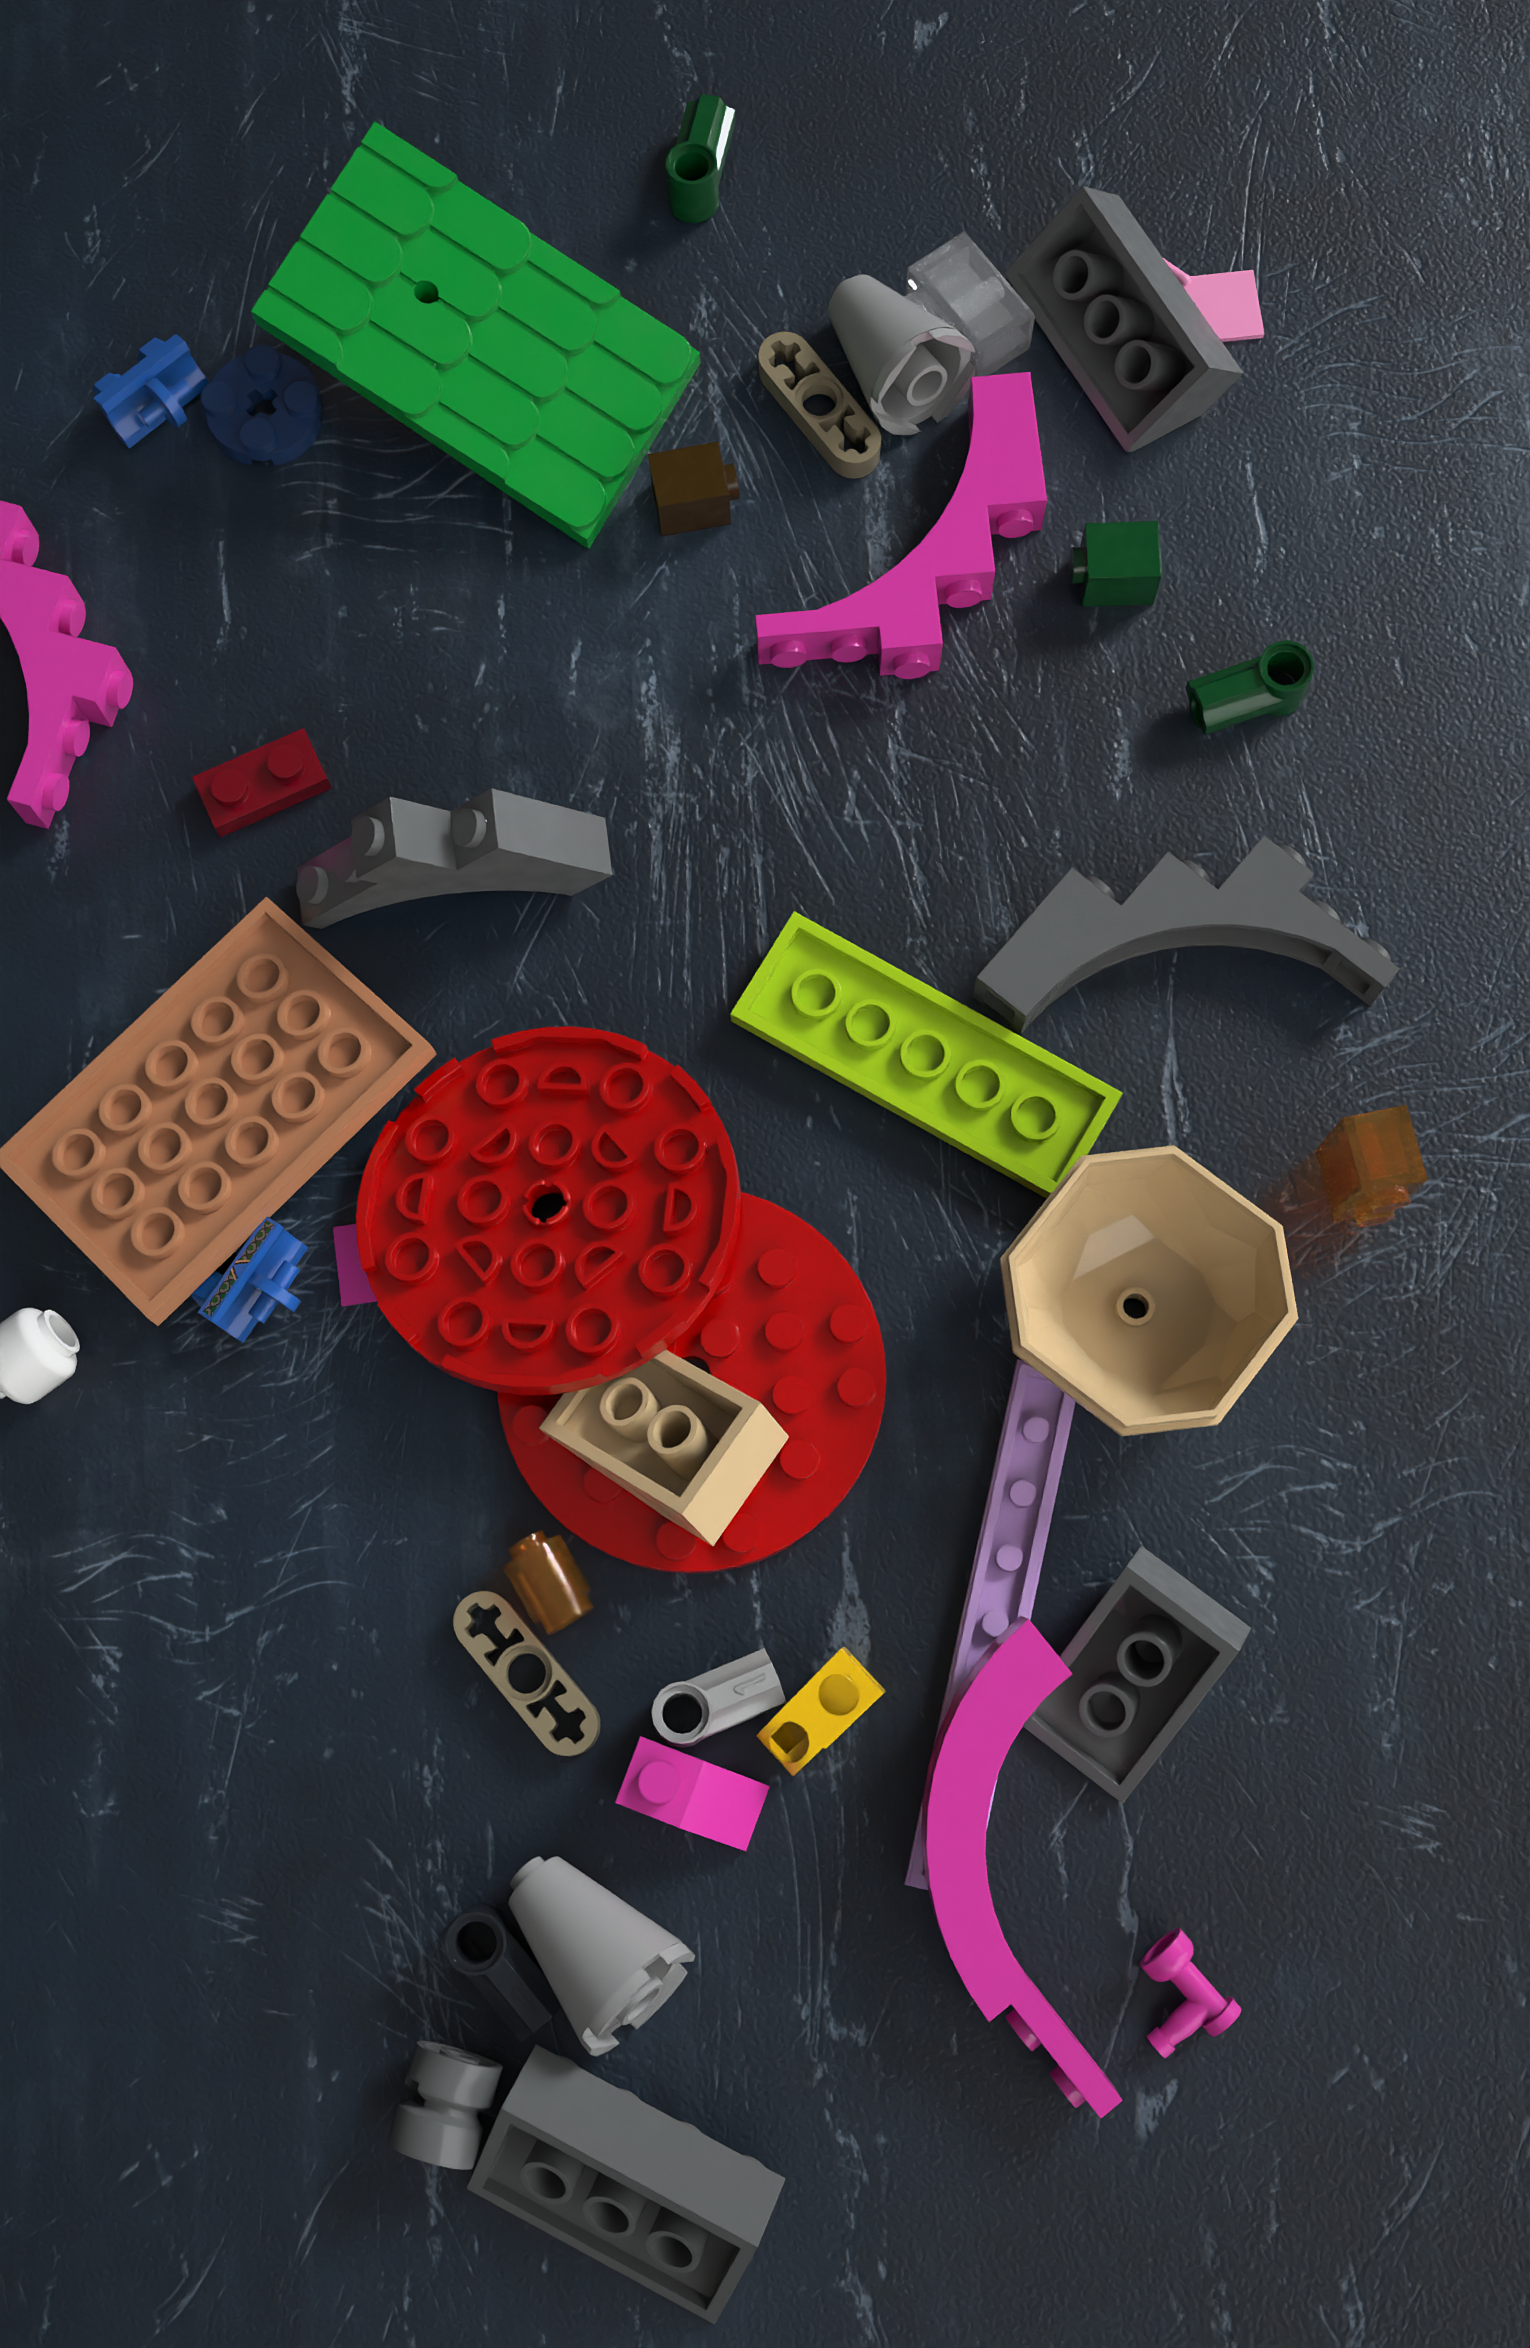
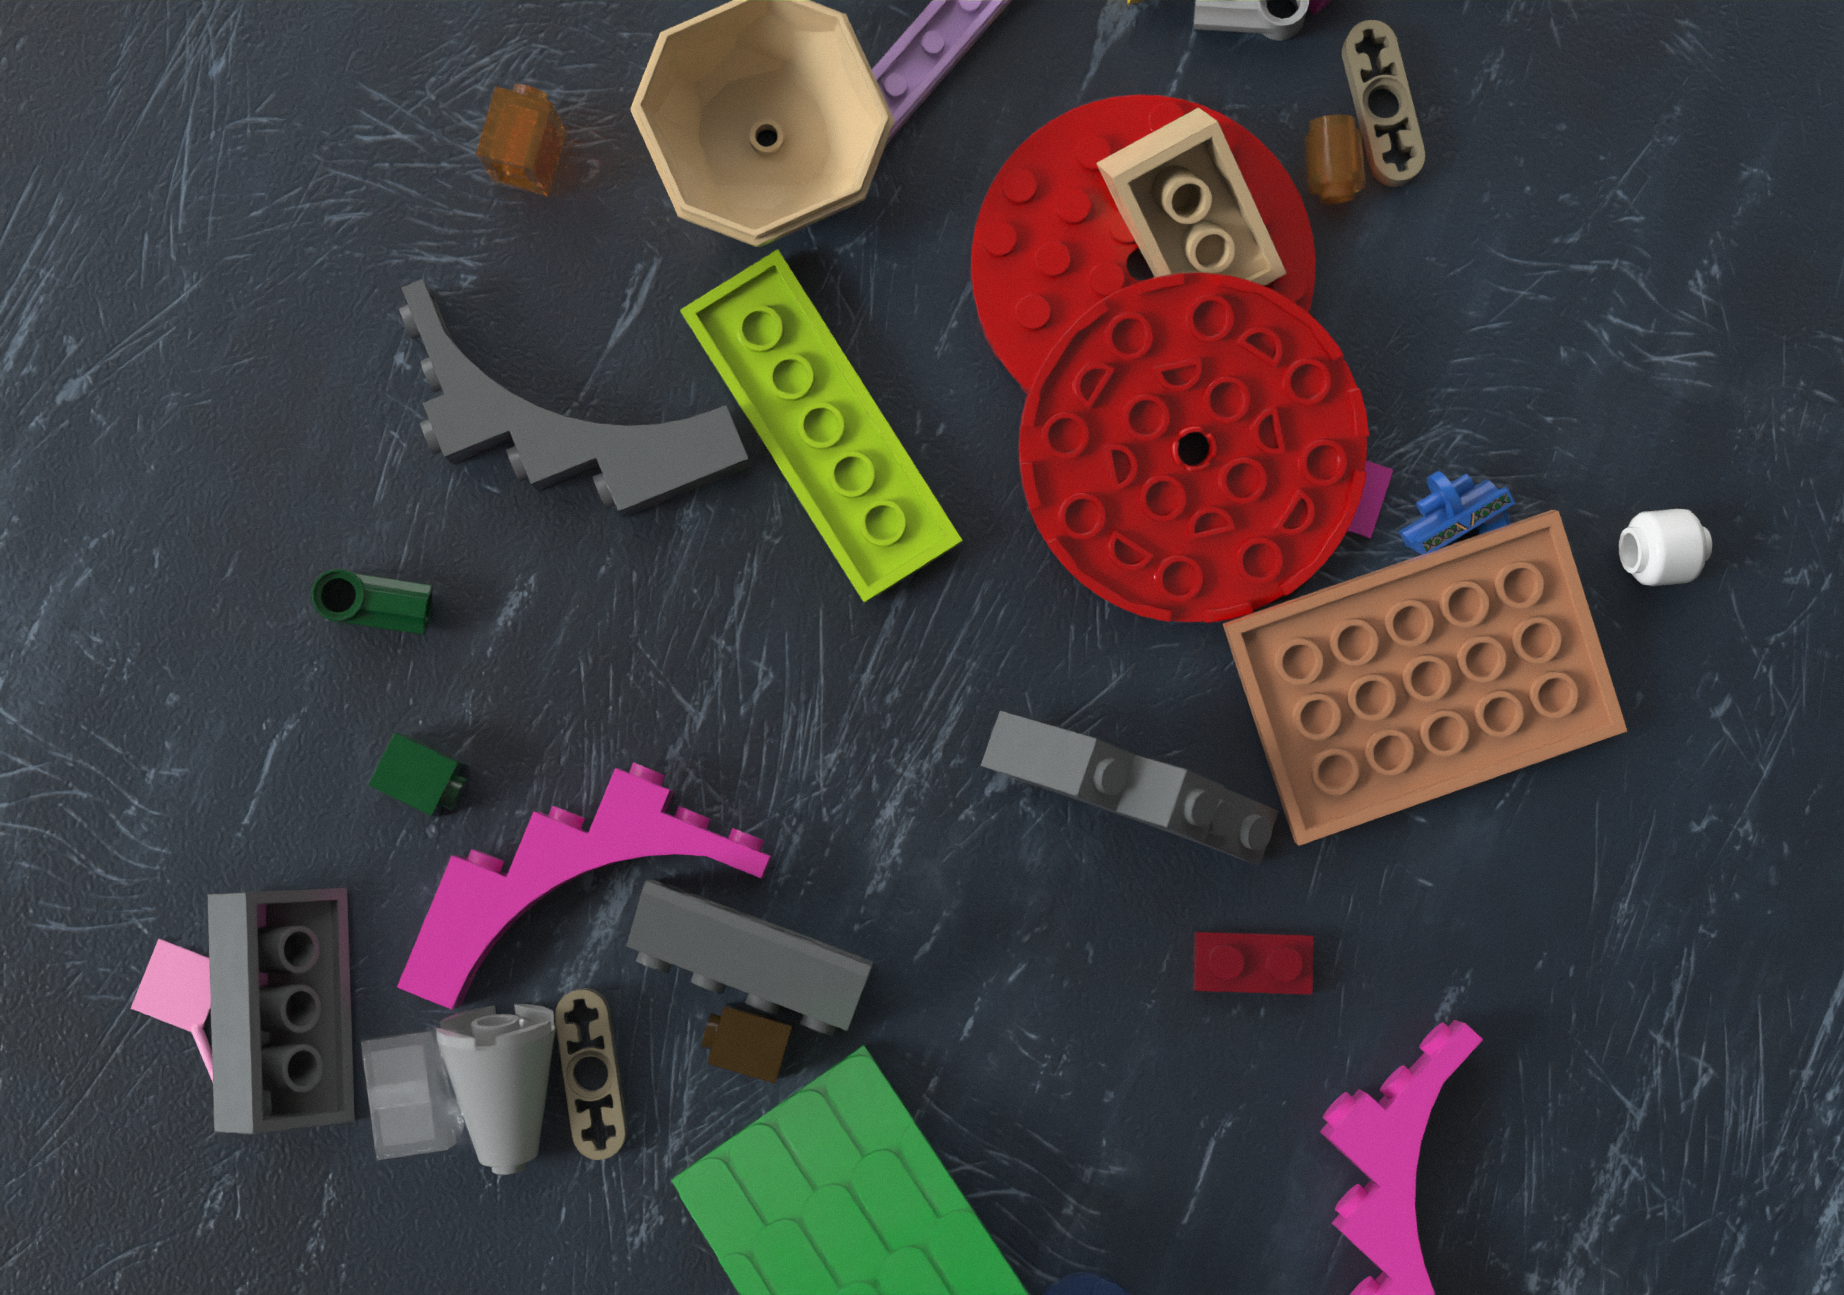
camera: 160 degrees left, 10 degrees up
(732, 559) = (747, 954): none -> dark grey slope

